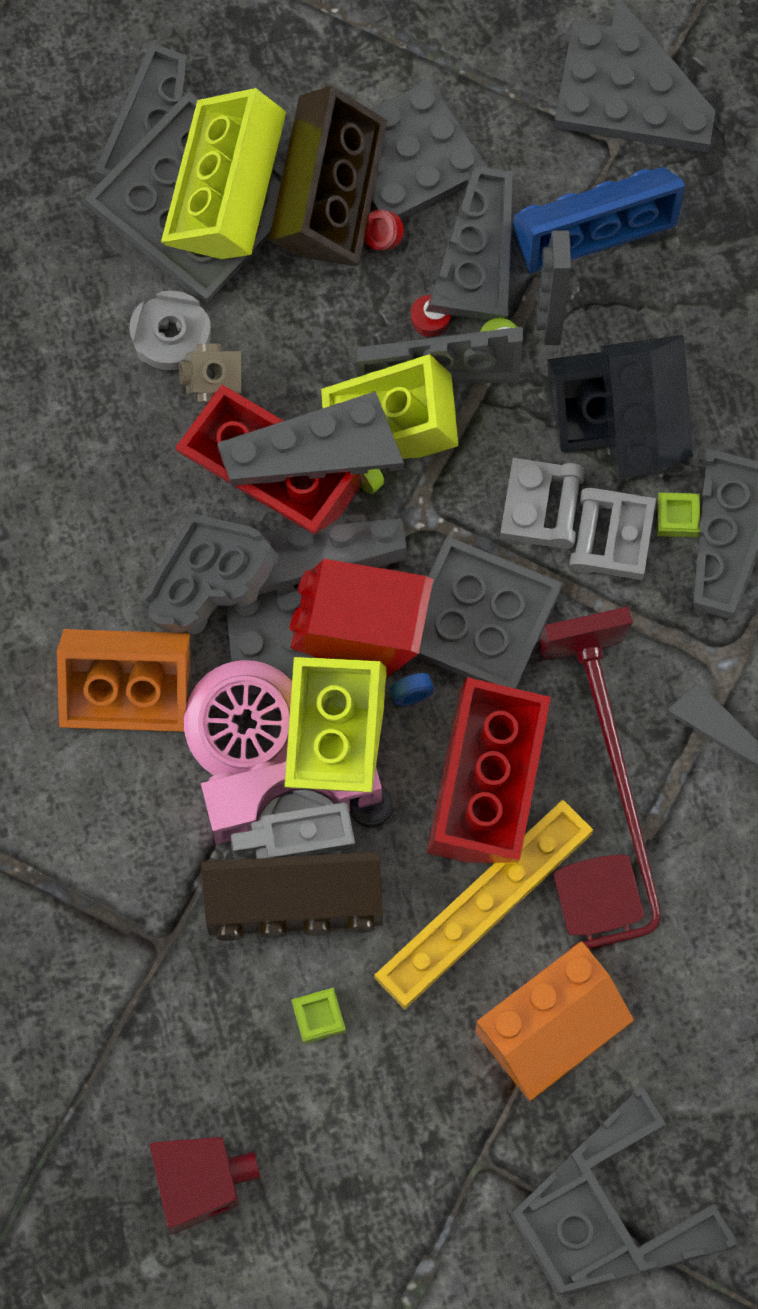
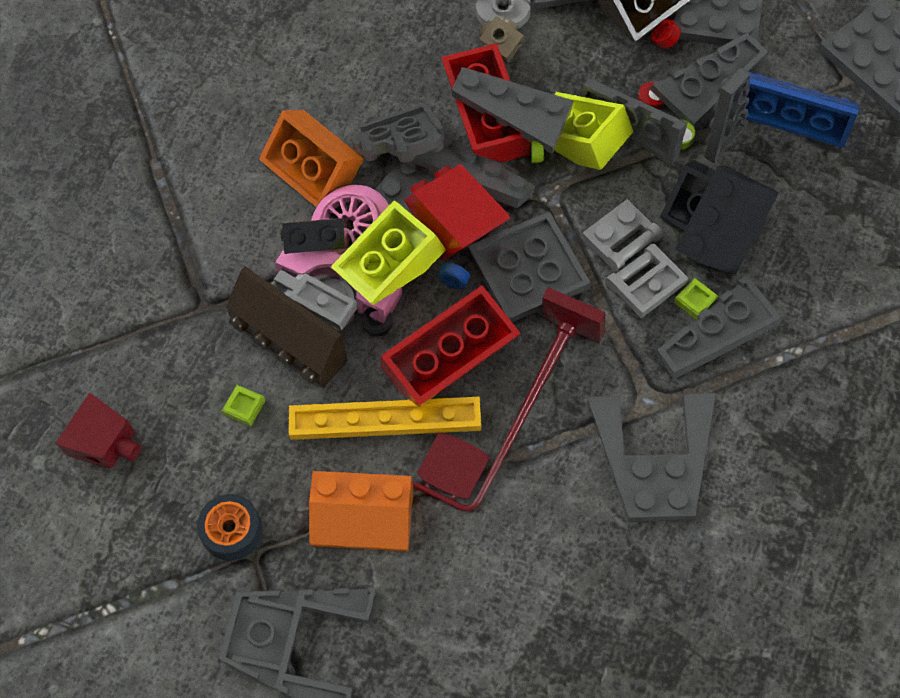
camera: 45 degrees right, 5 degrees down
(231, 768) = (313, 235): none -> black hinge
(447, 1134) = (224, 512): none -> wheel

